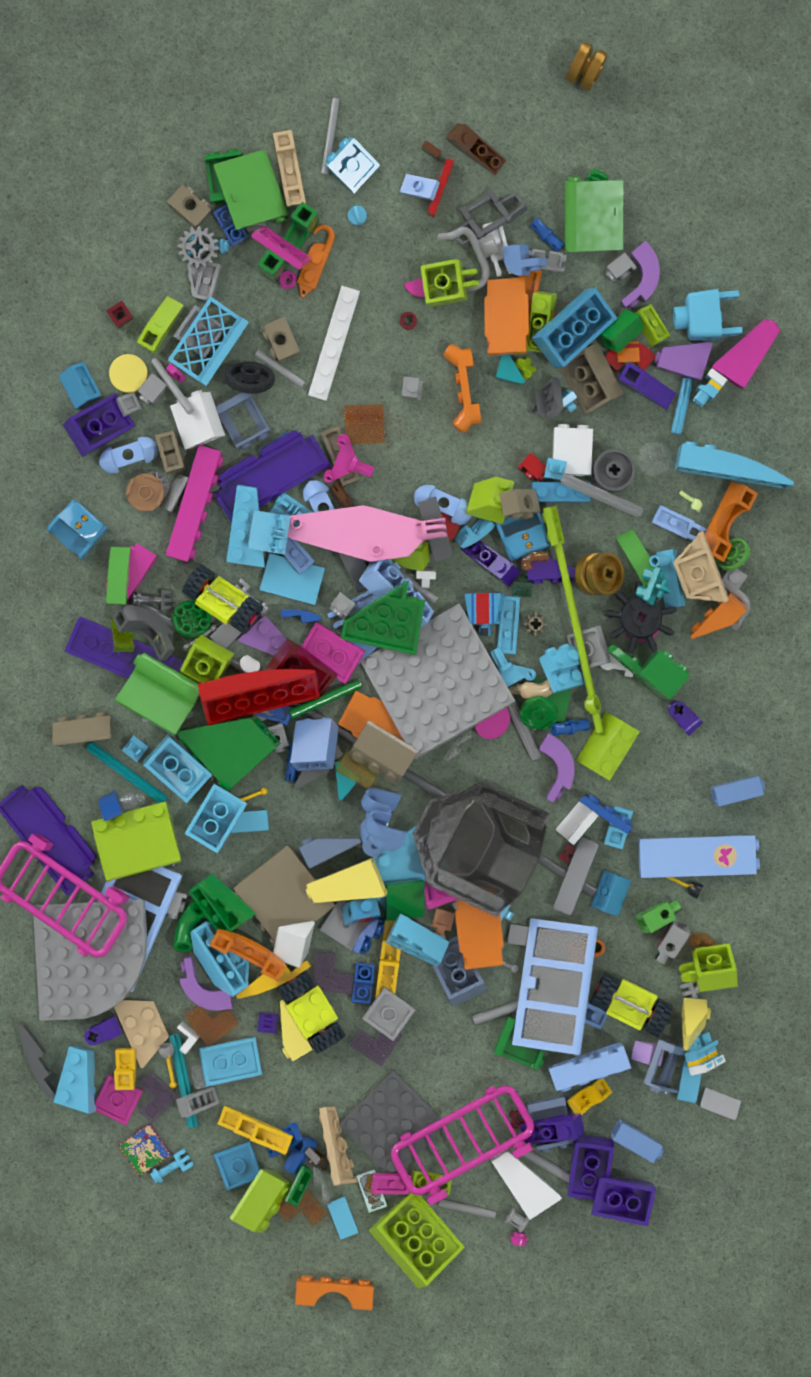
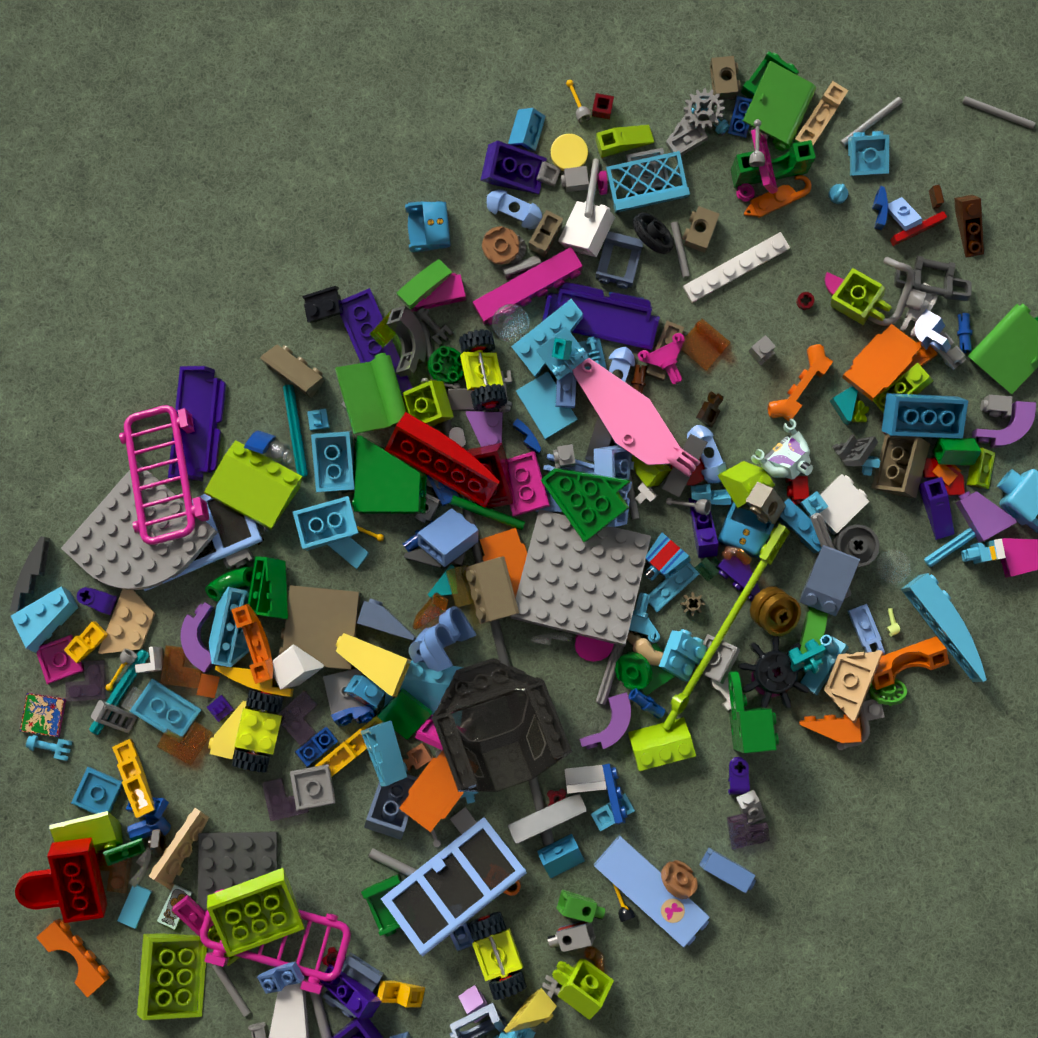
camera: 45 degrees right, 5 degrees down
(56, 661) = (322, 304): none -> black plate
(108, 332) = (582, 110): none -> hinge
(208, 543) = (510, 322): none -> clear tile
(243, 1015) = (208, 685): none -> orange sticker
(266, 530) = (562, 349): none -> teal plate
(271, 1072) = (185, 747): none -> clear orange plate
(275, 253) = (757, 157): none -> light grey hinge
(283, 1243) = (70, 883): none -> red brick
(352, 809) = (433, 608): none -> clear orange slope
(395, 195) = (881, 204): none -> blue slope
(415, 471) = (709, 411): none -> dark brown plate
(418, 39) = (998, 112): none -> light grey bar
(433, 1137) = (255, 912): none -> lime slope
(476, 547) = (702, 506): none -> light grey hinge
(493, 1165) = (281, 976): none -> medium blue slope
(505, 452) = (787, 457): none -> light aqua torso
(589, 1066) = (422, 972): light blue wedge -> none
(617, 515) = (829, 580): none -> sand blue slope
(709, 829) = (679, 879): none -> medium nougat tile
(712, 730) = (751, 805): none -> light grey brick
(725, 755) = (744, 835): none -> clear purple plate

